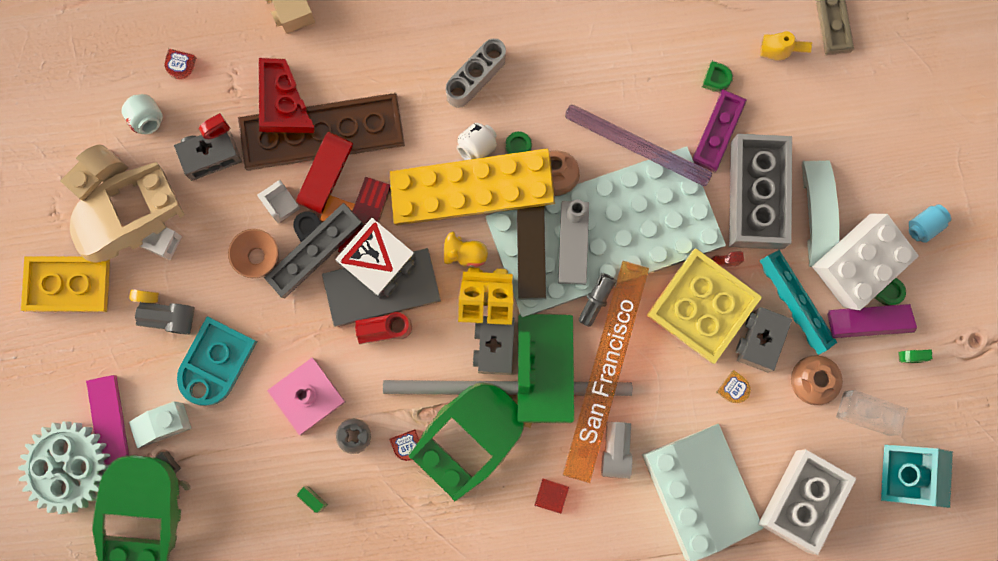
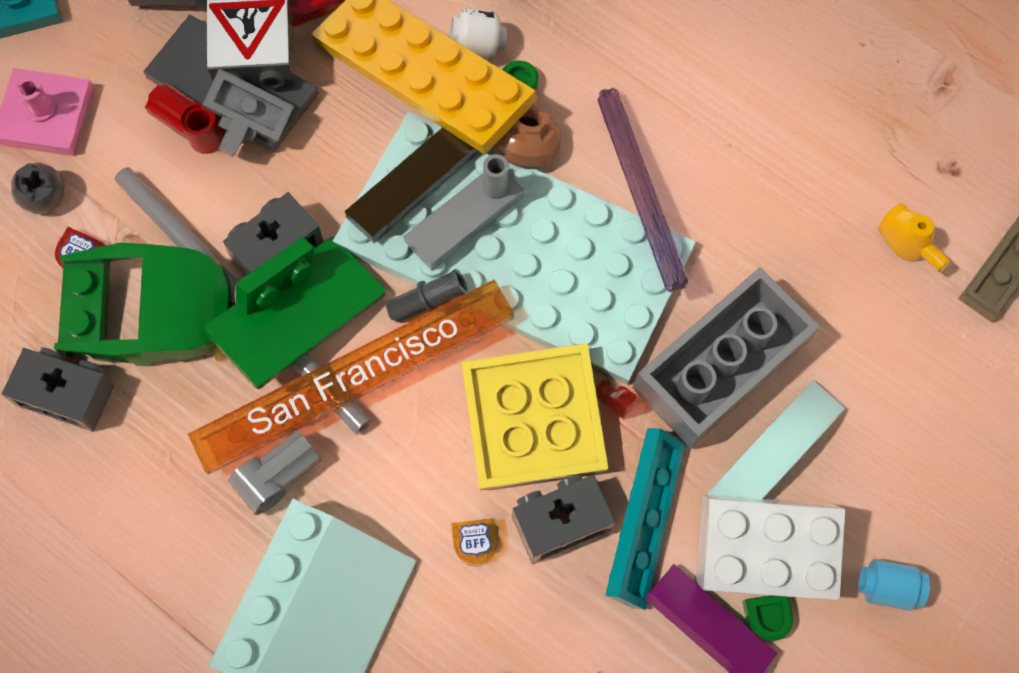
camera: 45 degrees right, 10 degrees down
(415, 298) = (245, 111): none -> light grey hinge
(466, 253) = (346, 121): yellow animal -> none
(469, 530) = (35, 382): none -> dark grey brick
(489, 290) = (312, 176): yellow hips -> none
(551, 496) = (157, 450): clear red tile -> none
(717, 77) = (805, 208): green tile -> none
(719, 130) = (730, 266): magenta tile -> none
(803, 381) = (571, 651): nougat piece -> none

